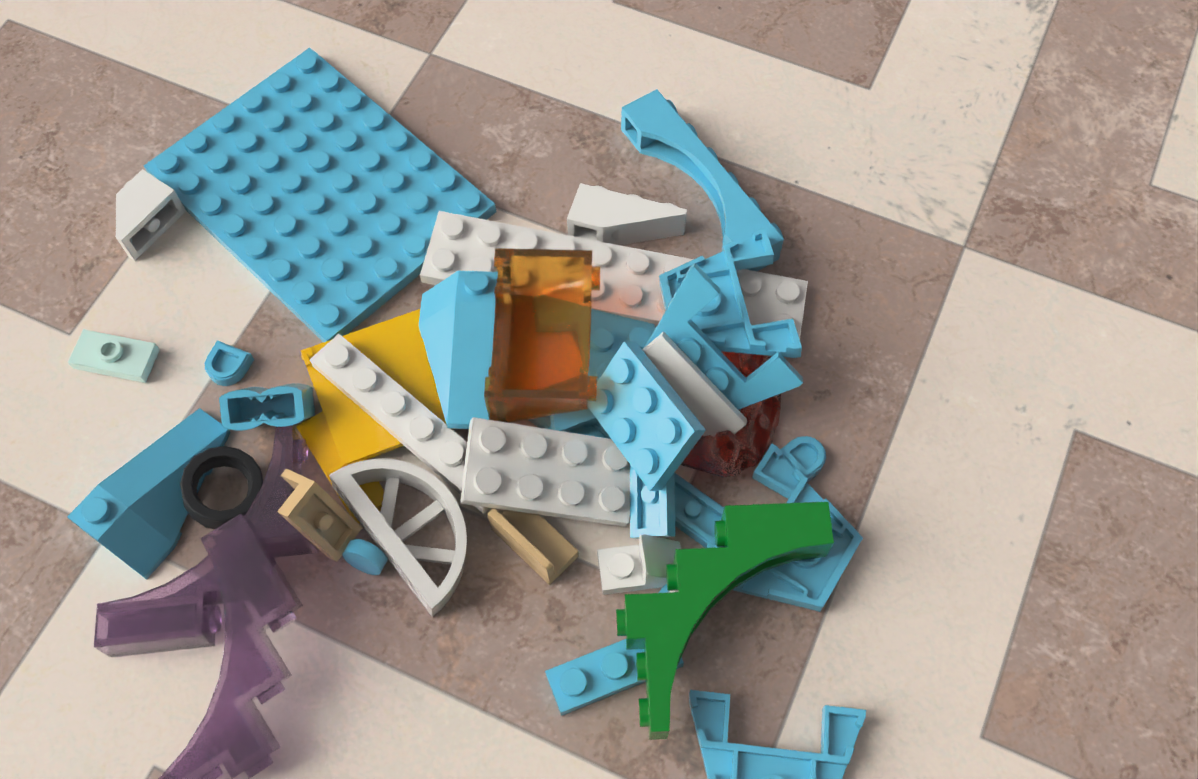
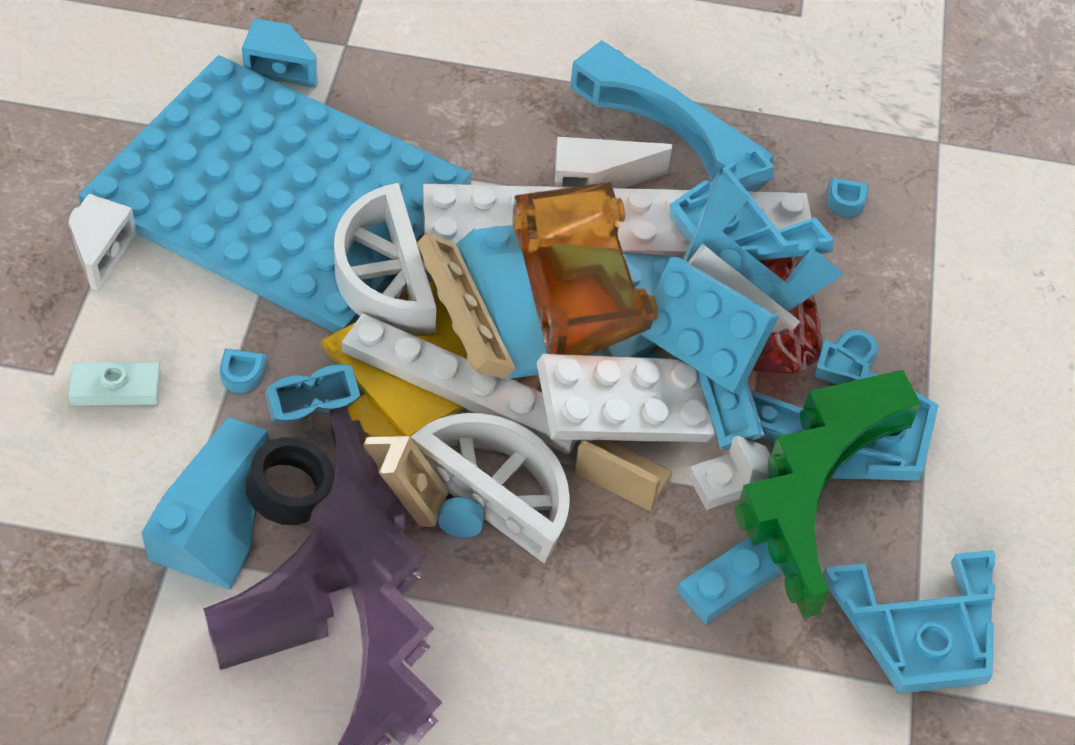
camera: 20 degrees left, 10 degrees down
(358, 54) = (279, 53): none -> medium azure slope
(358, 244) = (411, 316): none -> white window
(423, 350) = (465, 306): none -> tan plate
(849, 291) = (846, 197): none -> medium azure tile

